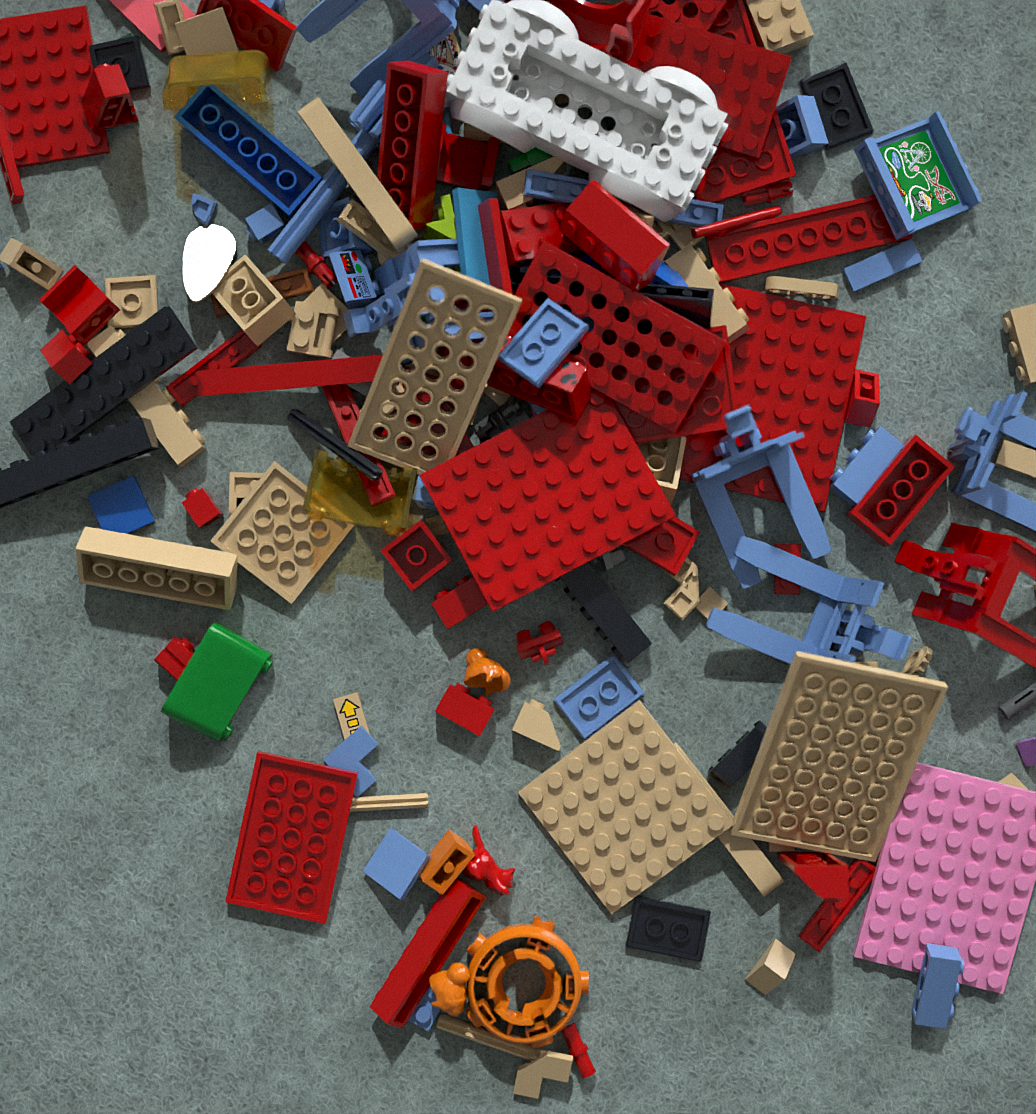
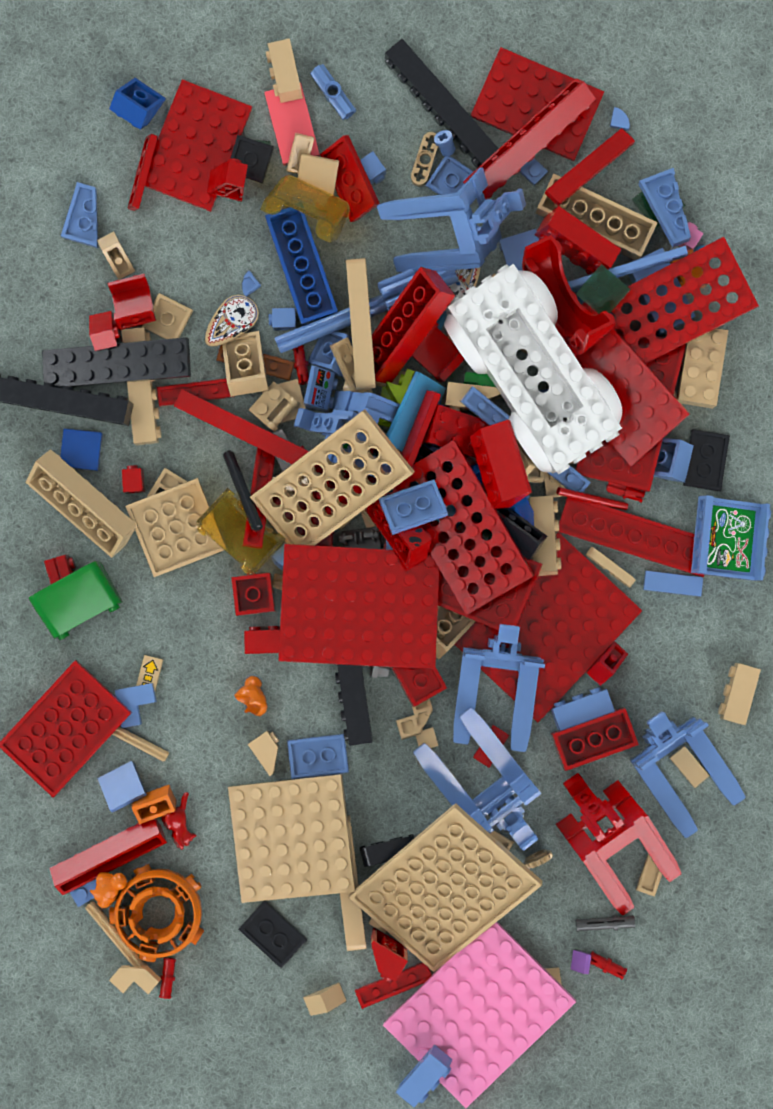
camera: 40 degrees right, 0 degrees up
(465, 709) = (226, 712): red brick -> none
(539, 647) = (299, 701): red hips -> none

